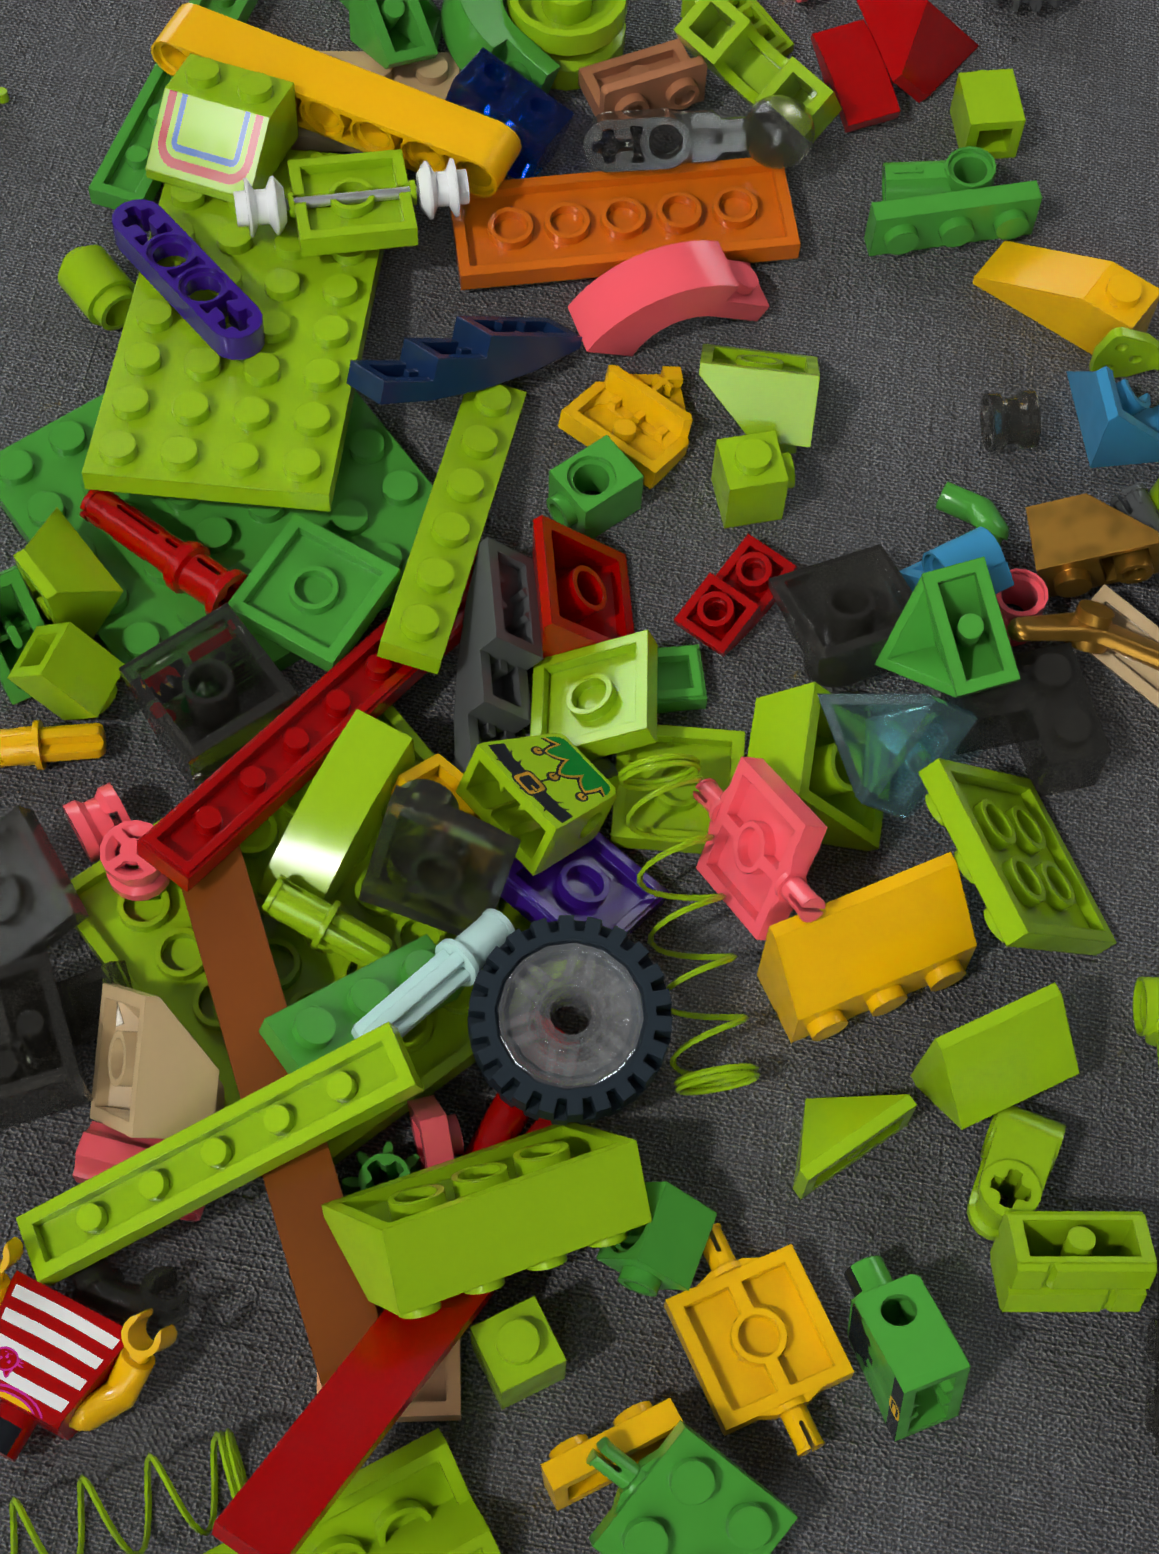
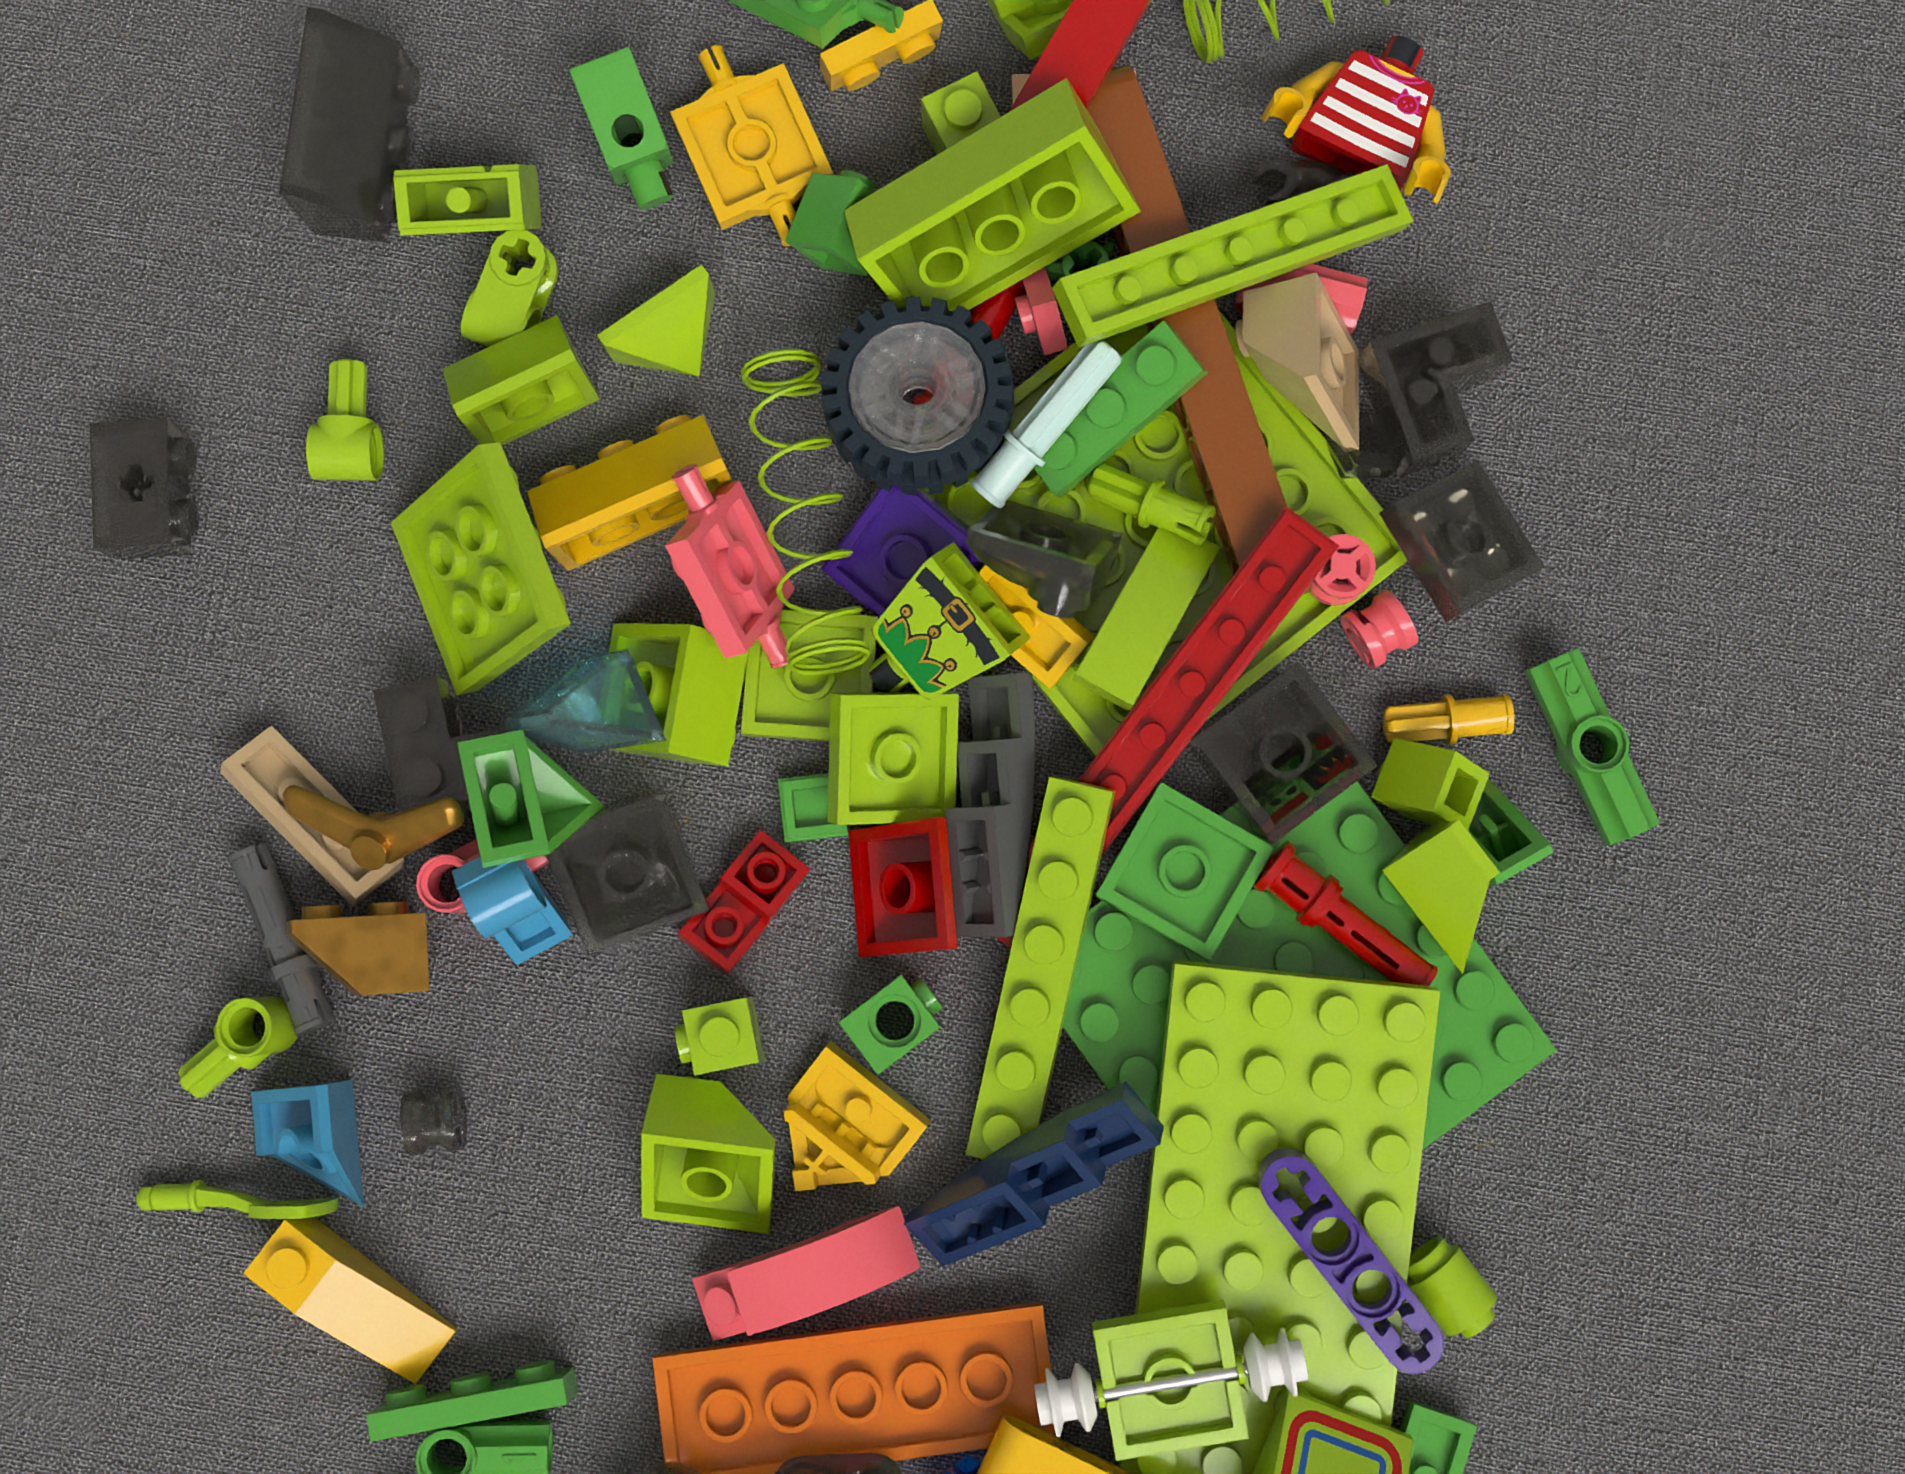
camera: 175 degrees left, 20 degrees up
(973, 510) = (475, 1002): bright green arm -> none

